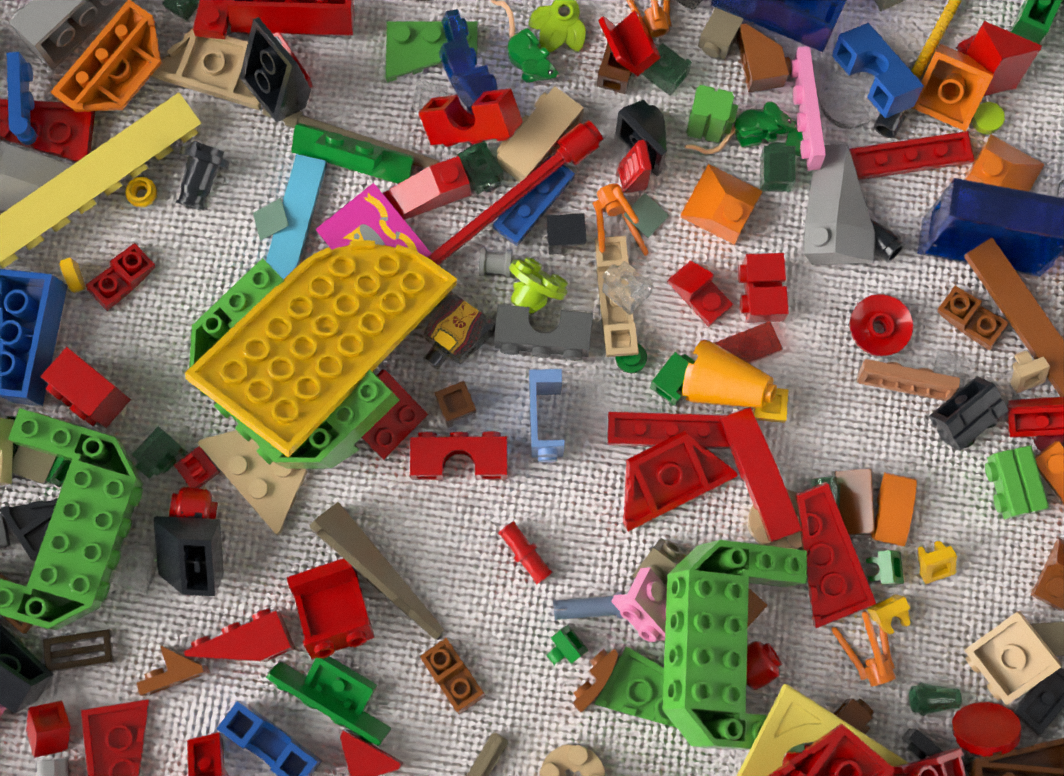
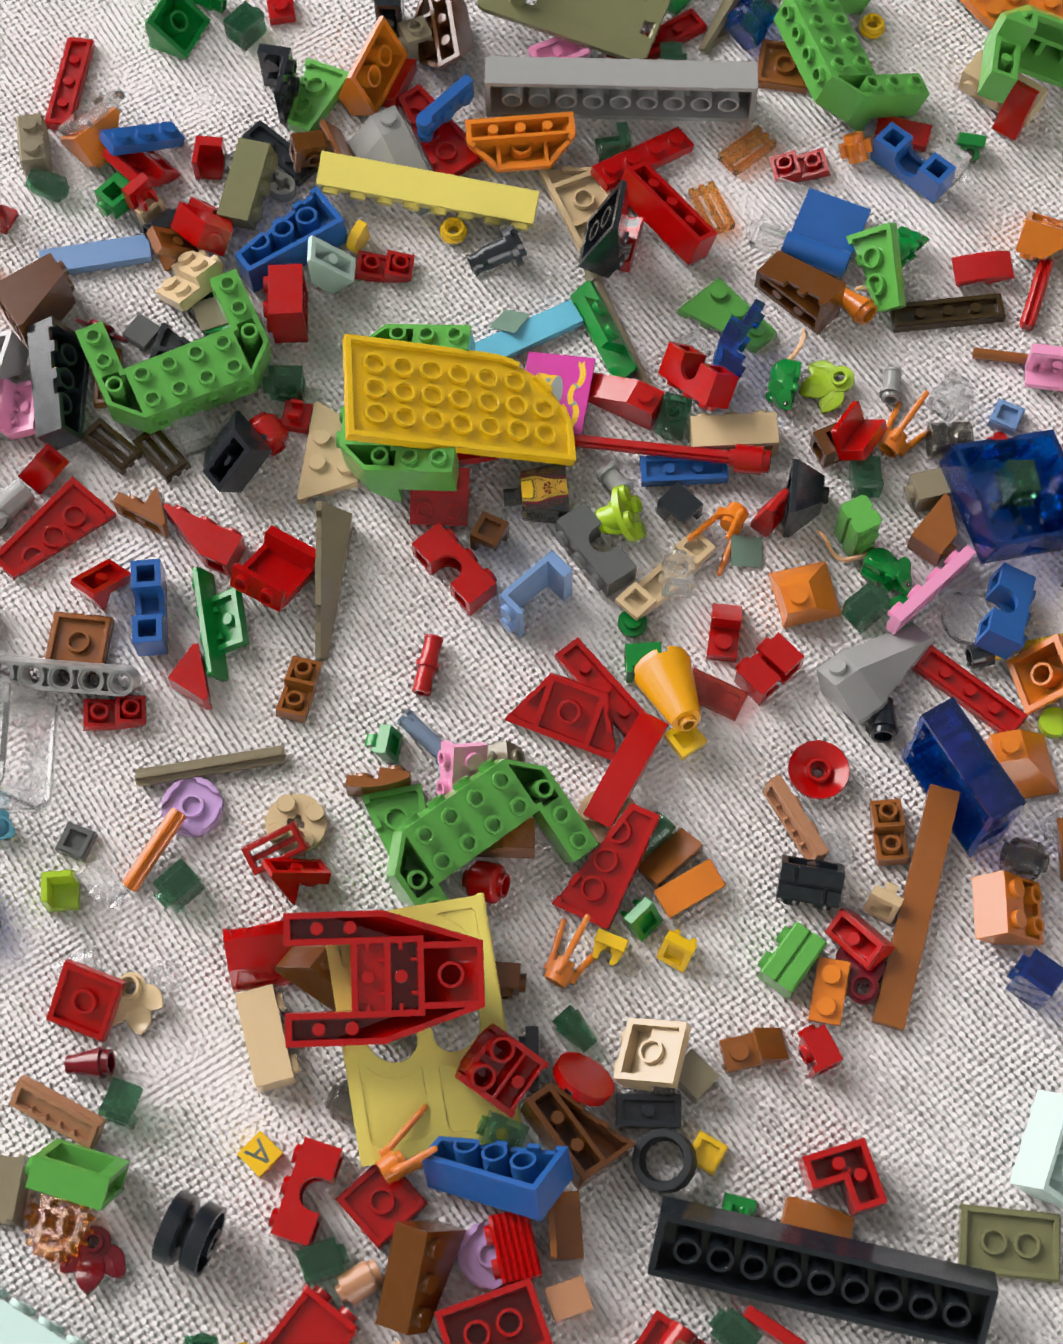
camera: 50 degrees right, 10 degrees down
(84, 322) = (329, 266): none -> light aqua slope
(153, 613) = (174, 470): none -> dark brown tile

